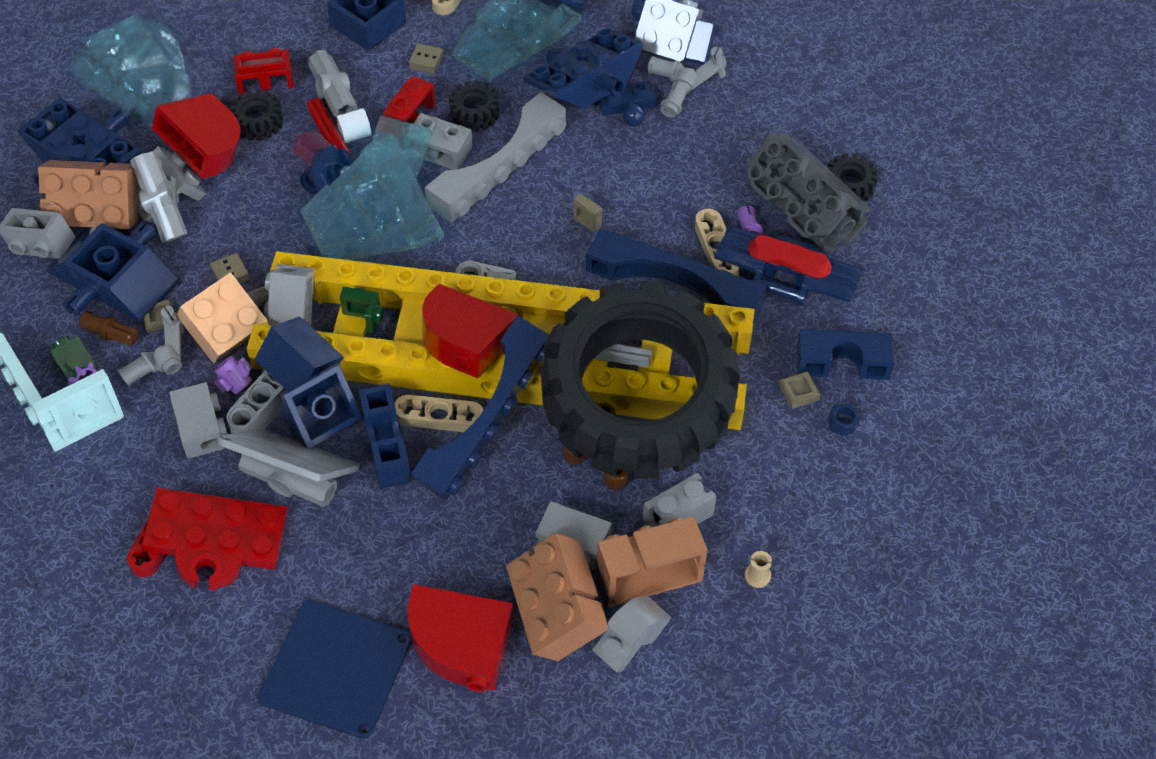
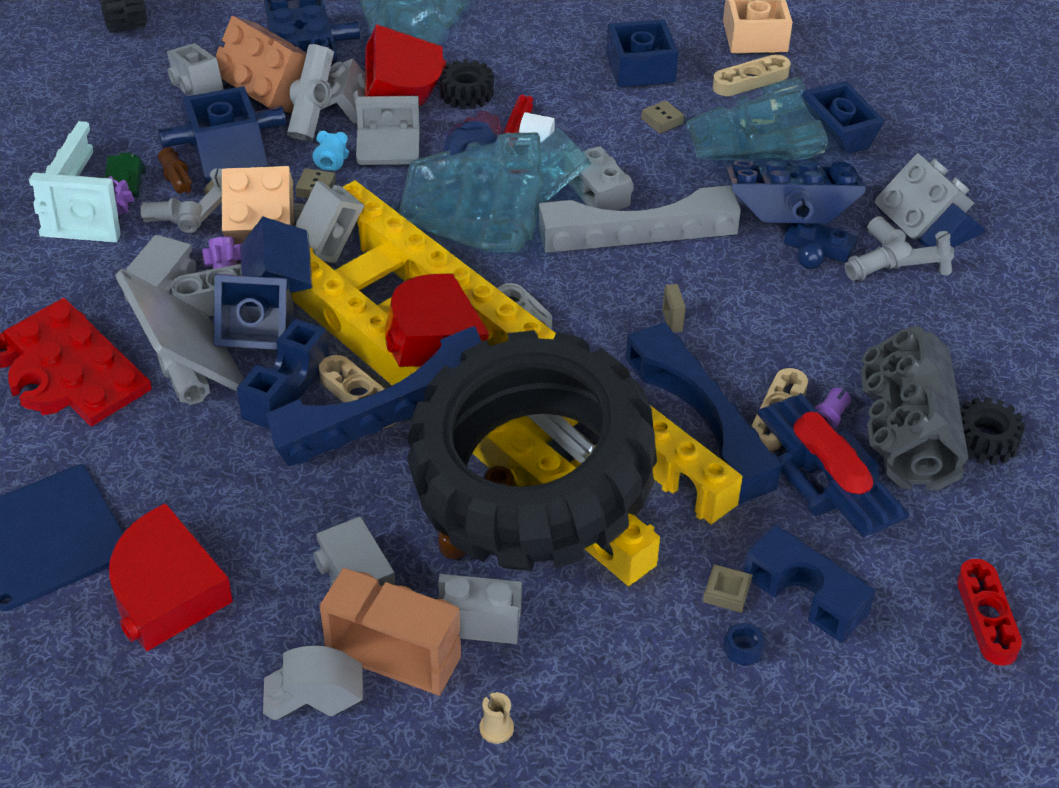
camera: 40 degrees right, 10 degrees down
(215, 236) = (331, 151): none -> medium azure brick
(242, 194) = (387, 130): none -> light grey bracket
(262, 66) = (506, 48): red window -> none
(331, 83) = (554, 89): light grey piece -> none
(362, 304) = (375, 259): dark green bracket -> none
(409, 97) = (605, 132): red window -> none
(474, 94) = (650, 170): black tyre -> none
(544, 592) = (247, 621): nougat piece -> none
(953, 314) = (986, 627): none -> red beam

